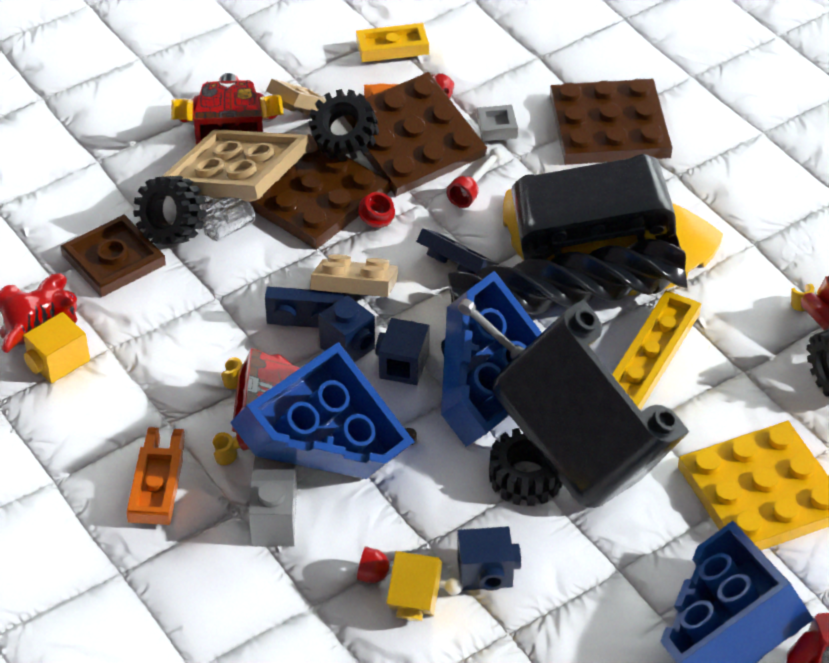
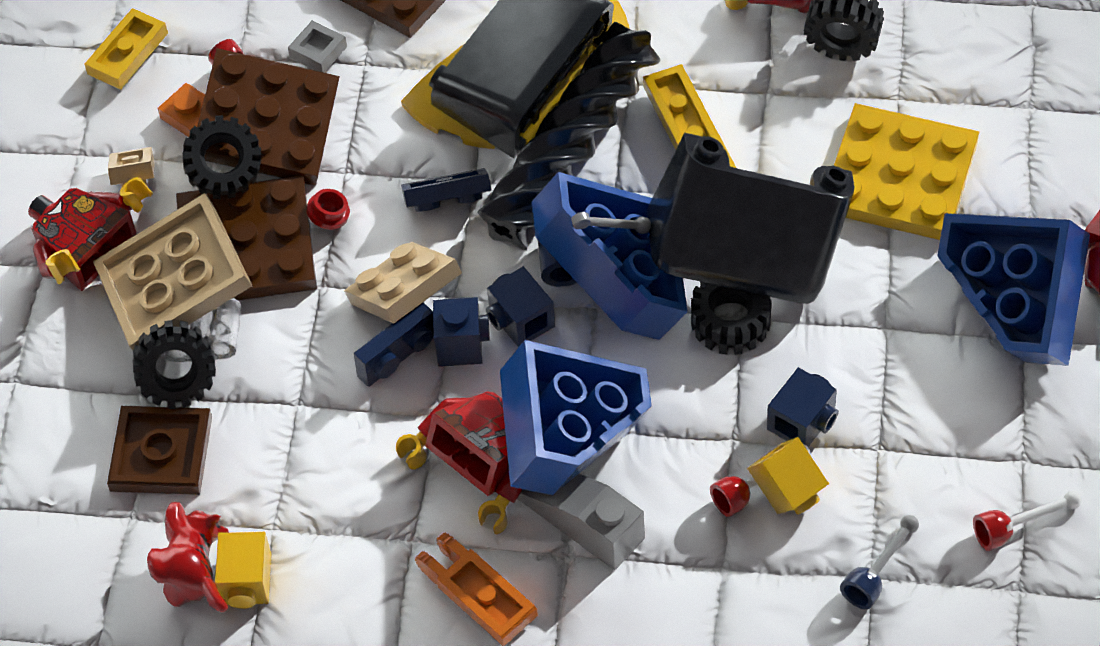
camera: 45 degrees left, 10 degrees up
(464, 190) = (370, 121): red hinge -> none

